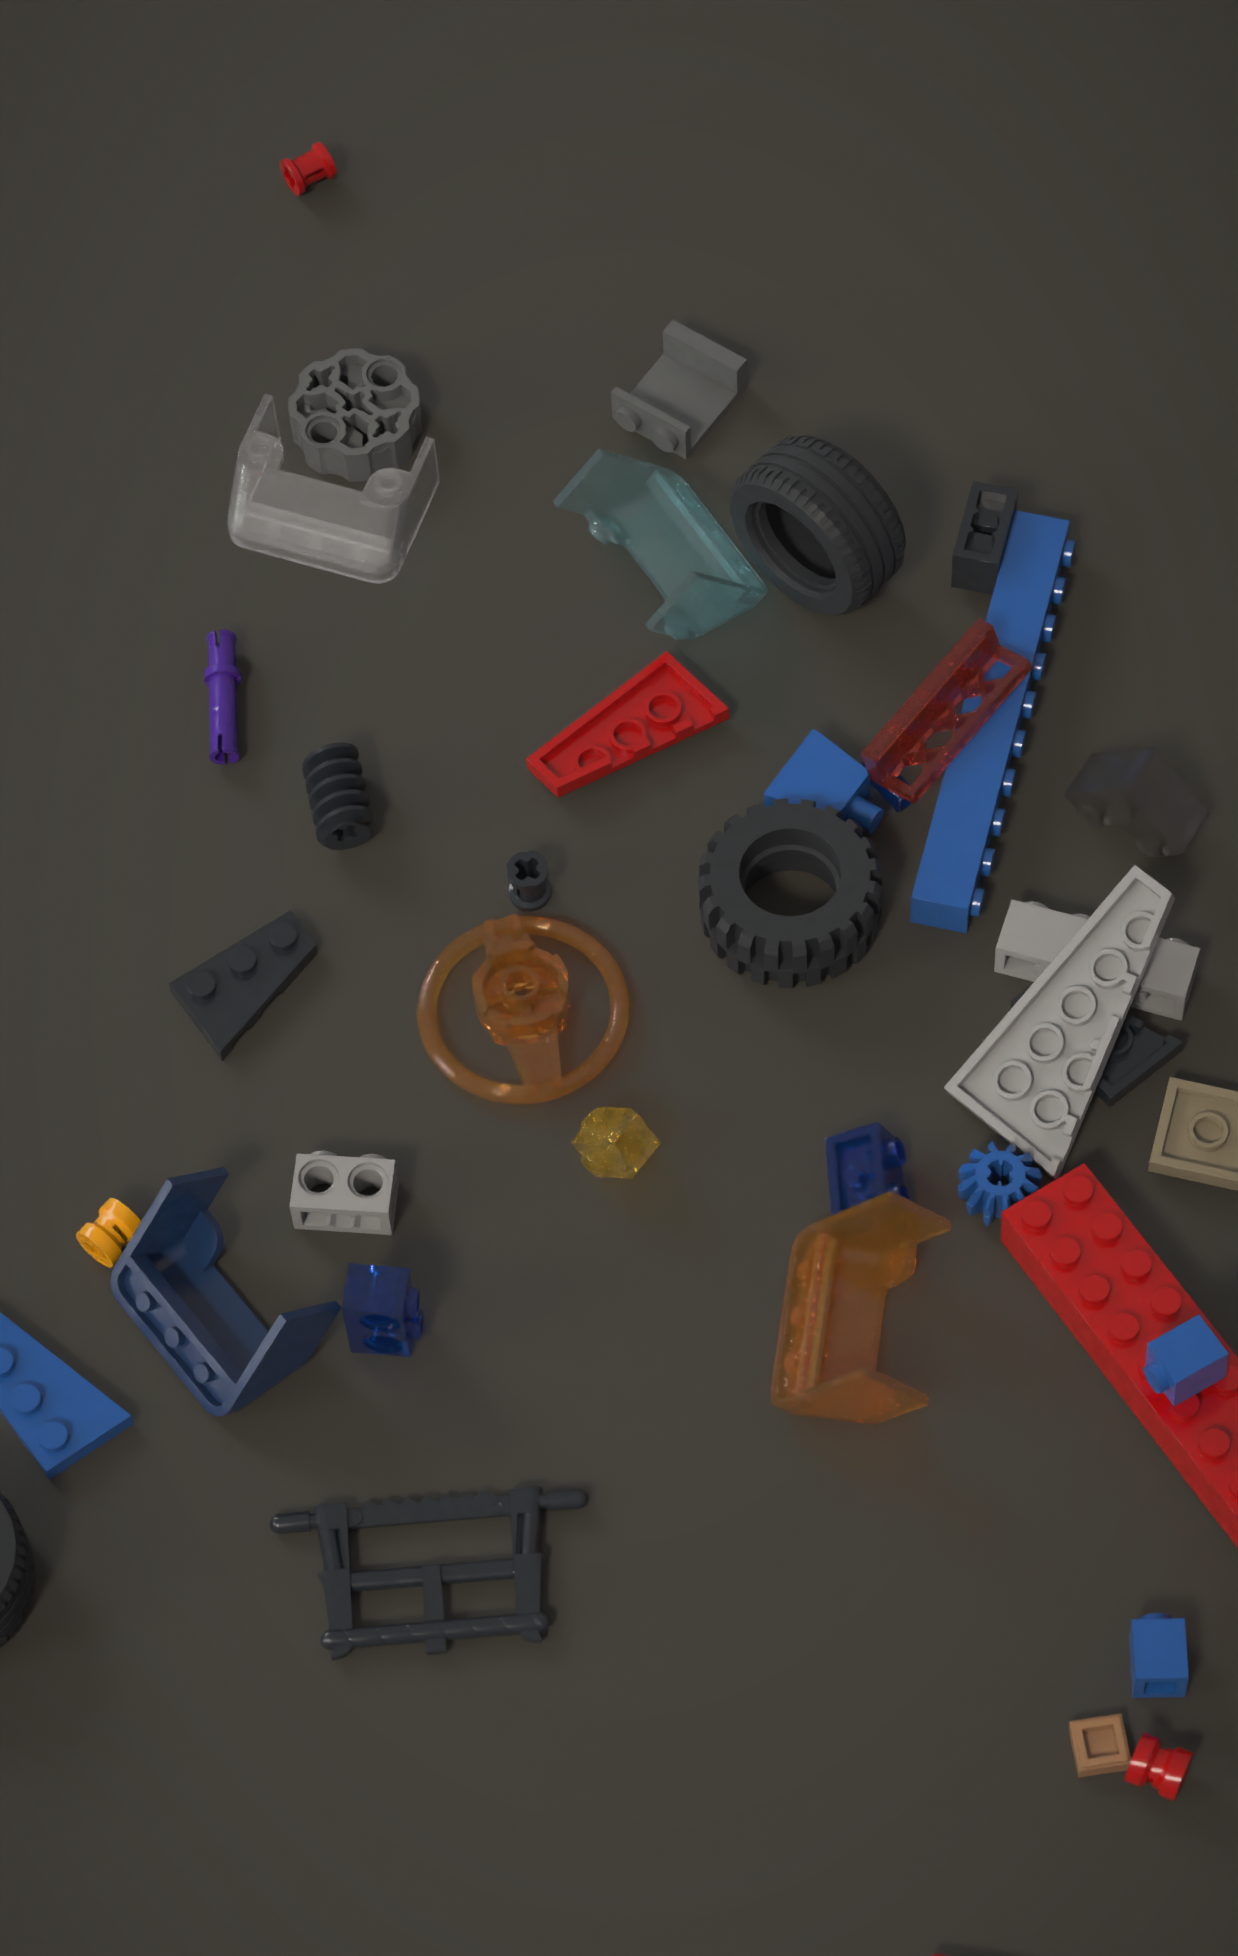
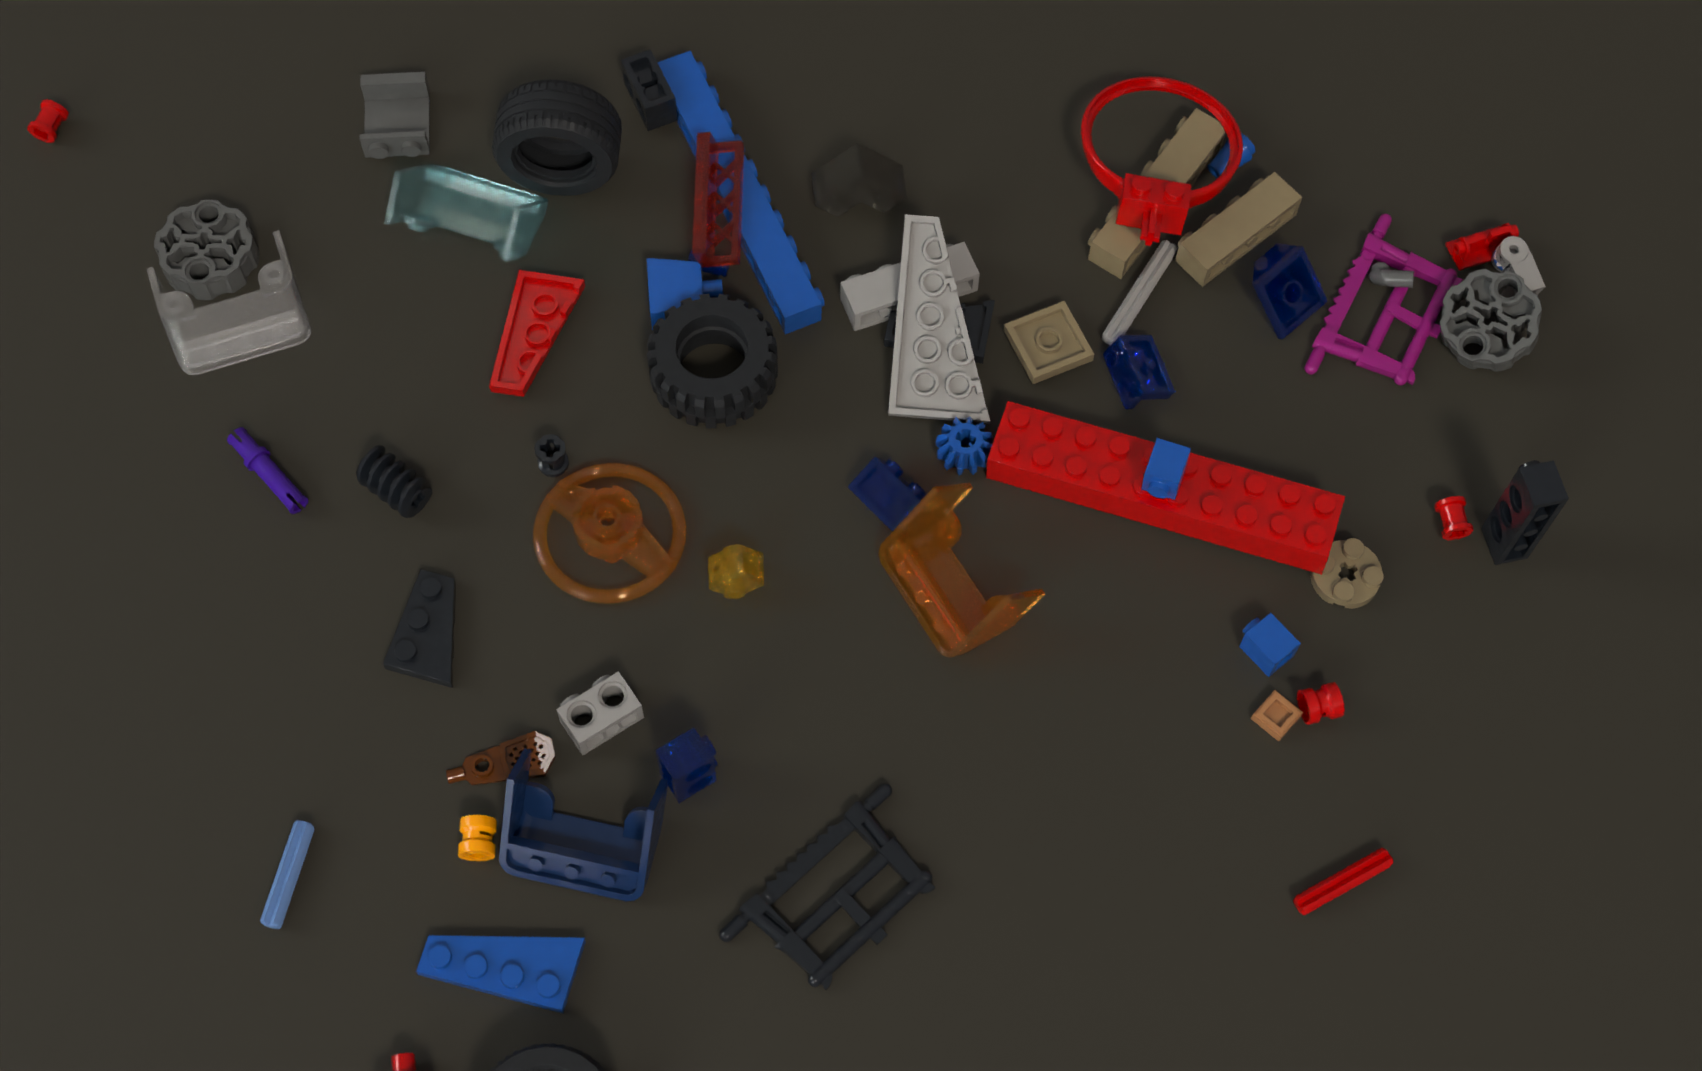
camera: 45 degrees left, 5 degrees up
(200, 1161) = (501, 763): none -> reddish brown piece

